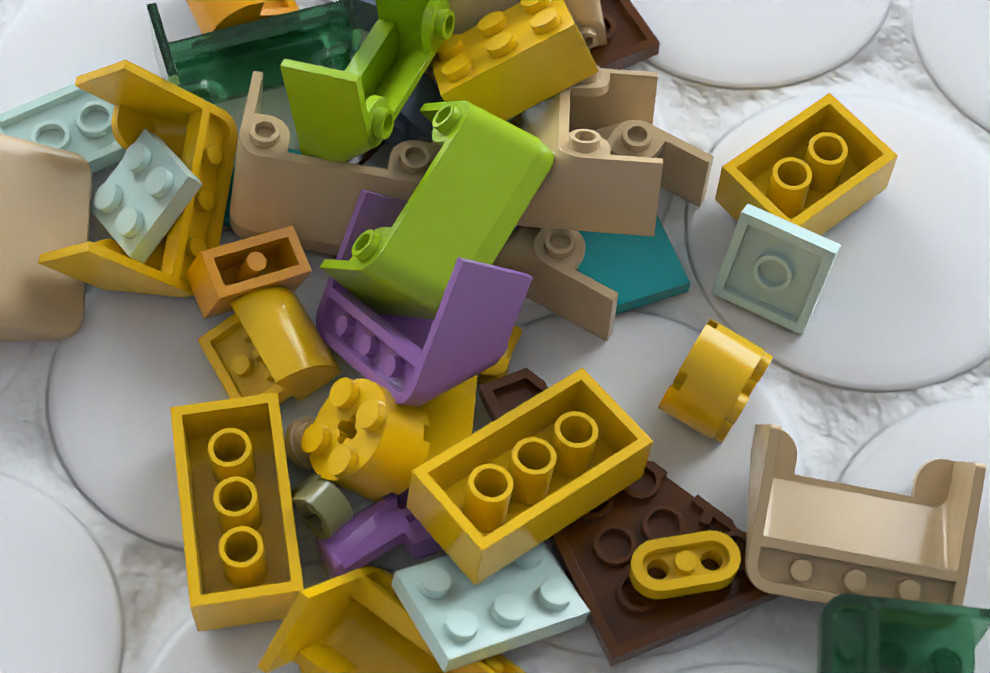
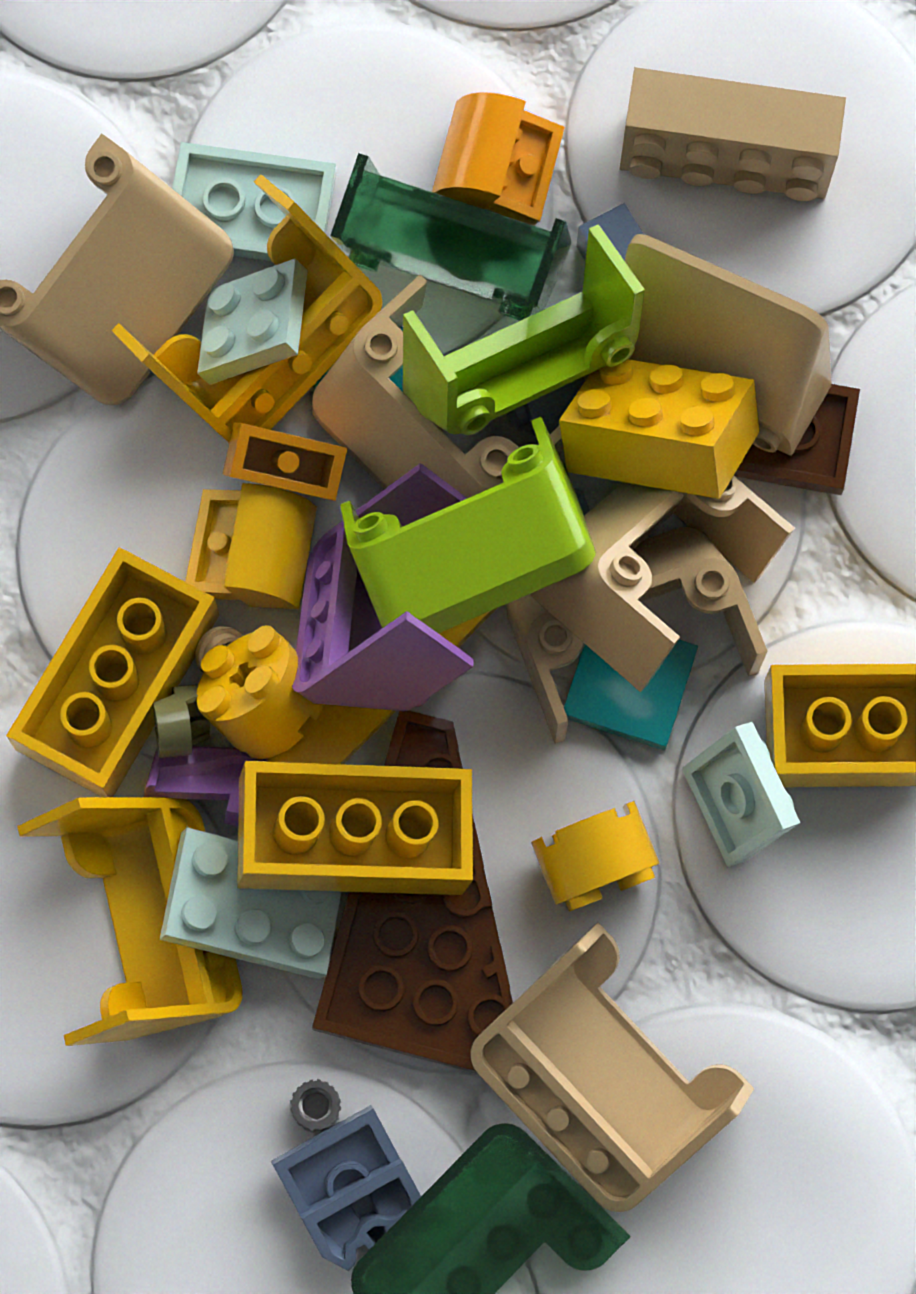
camera: 40 degrees right, 15 degrees up
(501, 368) = (441, 699): yellow hand -> none
(681, 561) = (429, 998): yellow plate -> none

